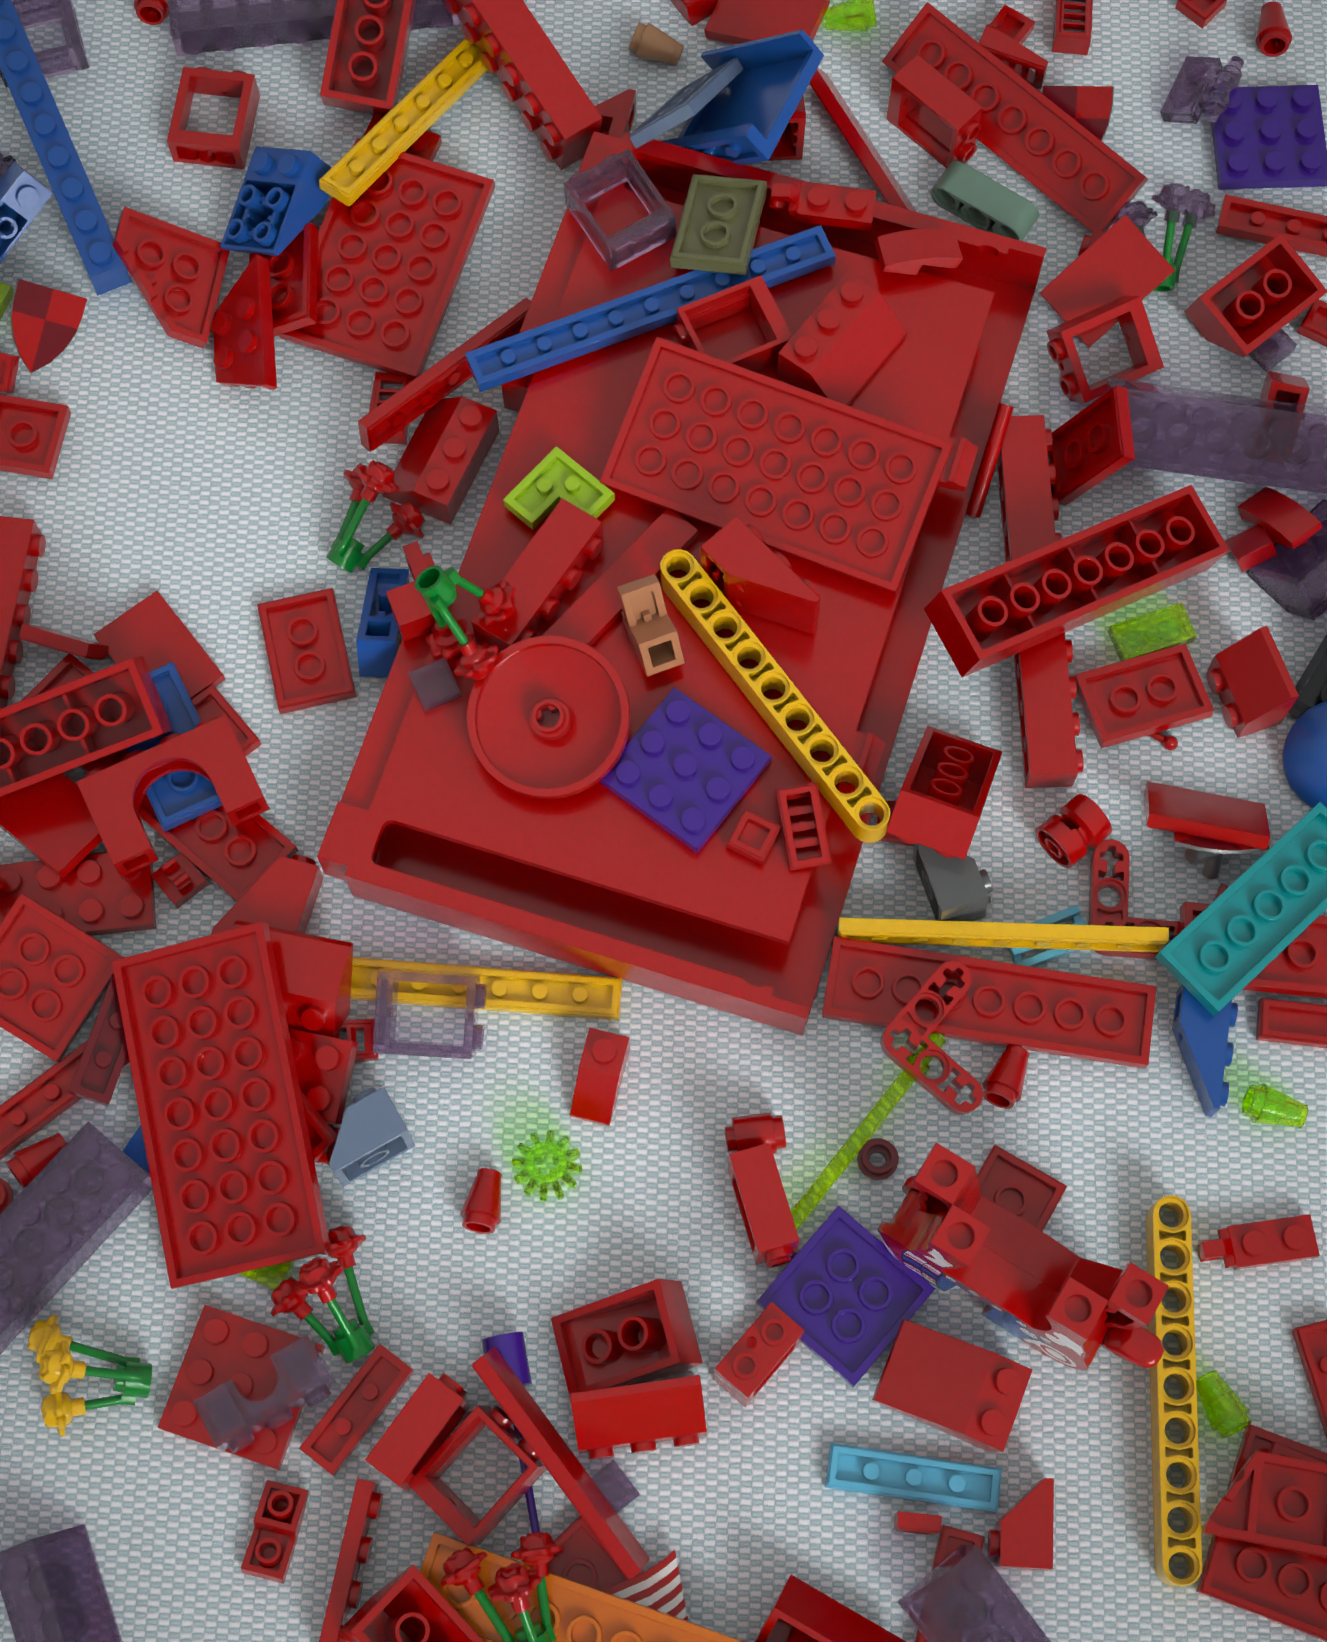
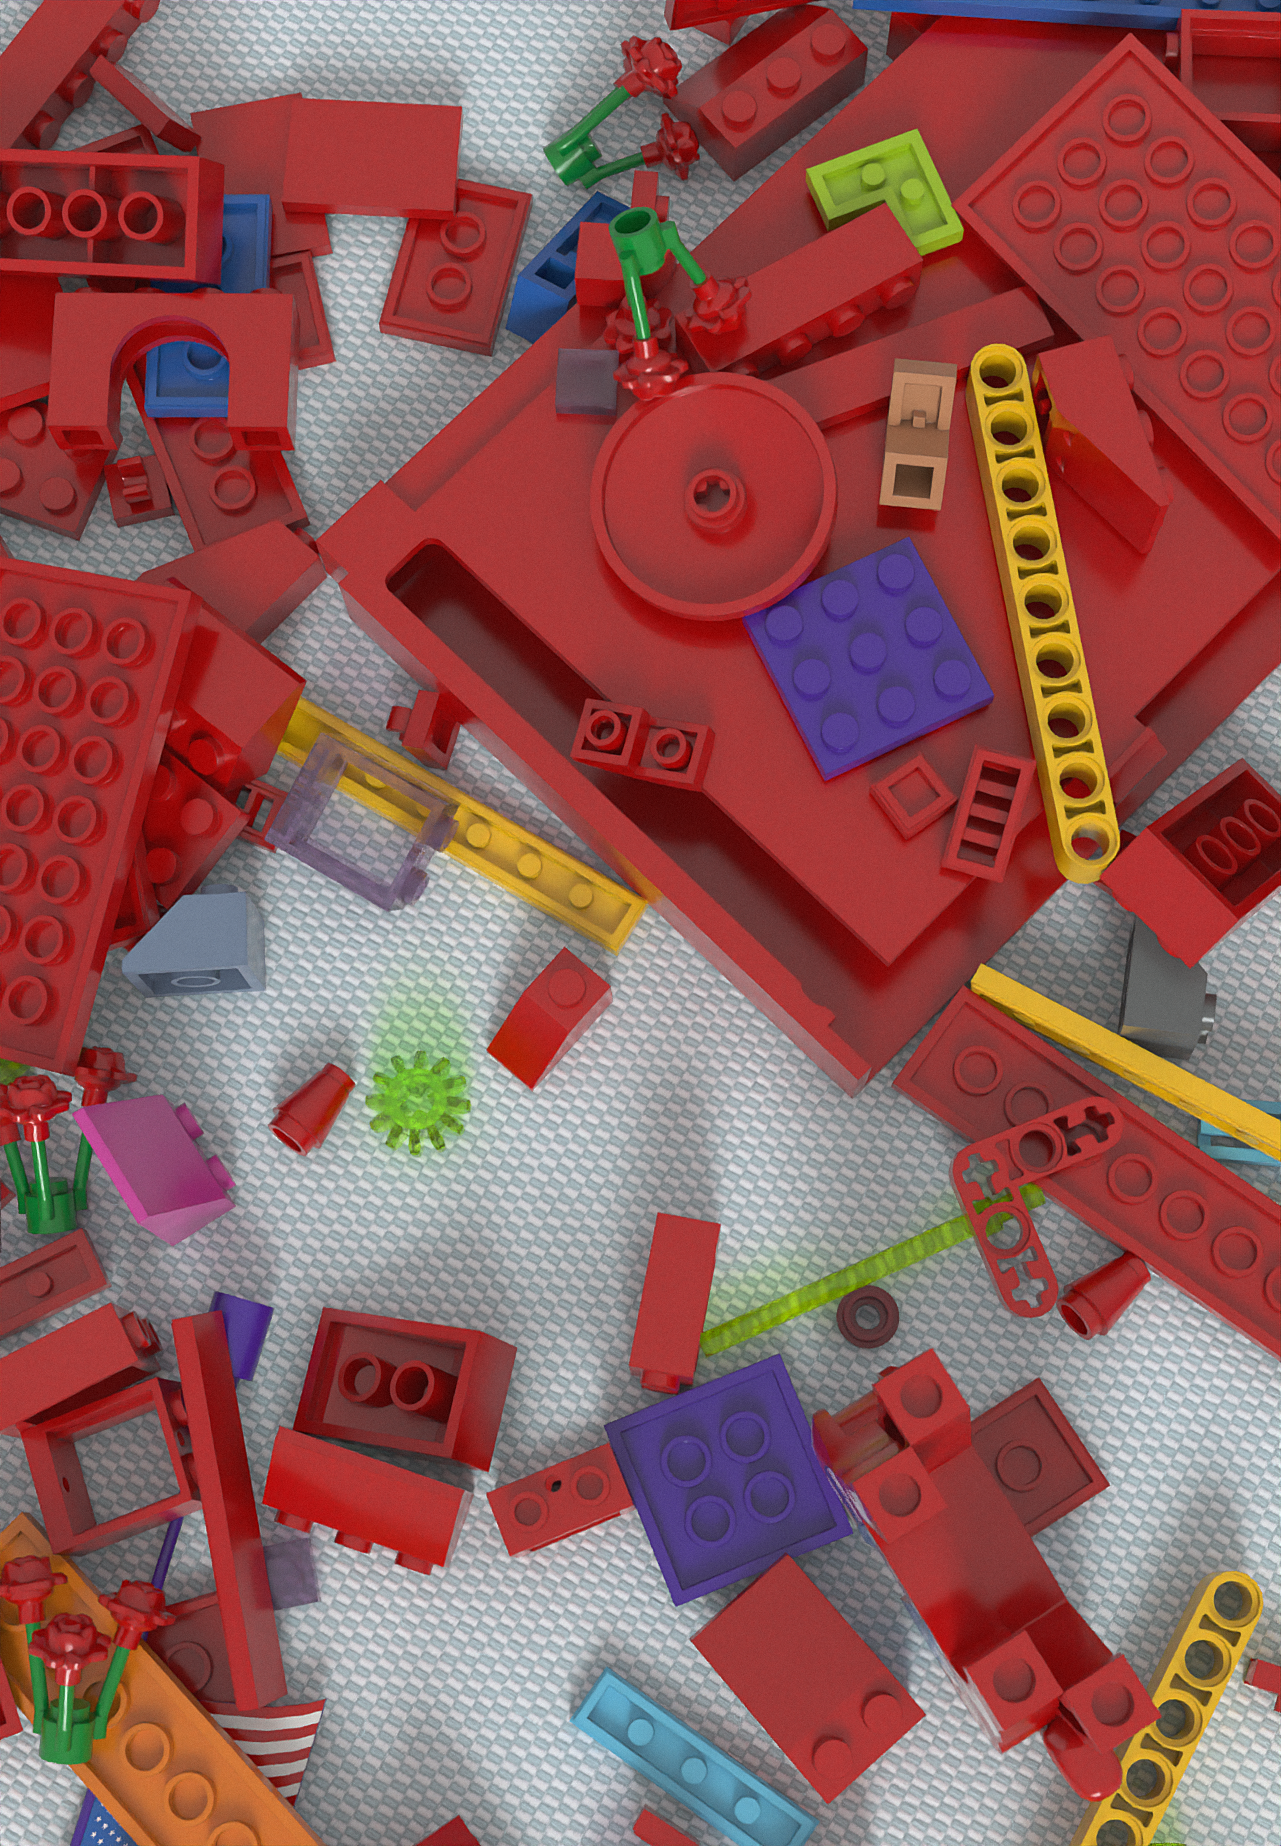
camera: 30 degrees right, 5 degrees up
(224, 610) = (372, 158): none -> red tile
(411, 1279) = (158, 1164): none -> dark pink slope
(435, 940) = (427, 729): none -> red tile
(579, 884) = (642, 745): none -> red slope
(754, 1131) = (718, 1198): red brick -> none

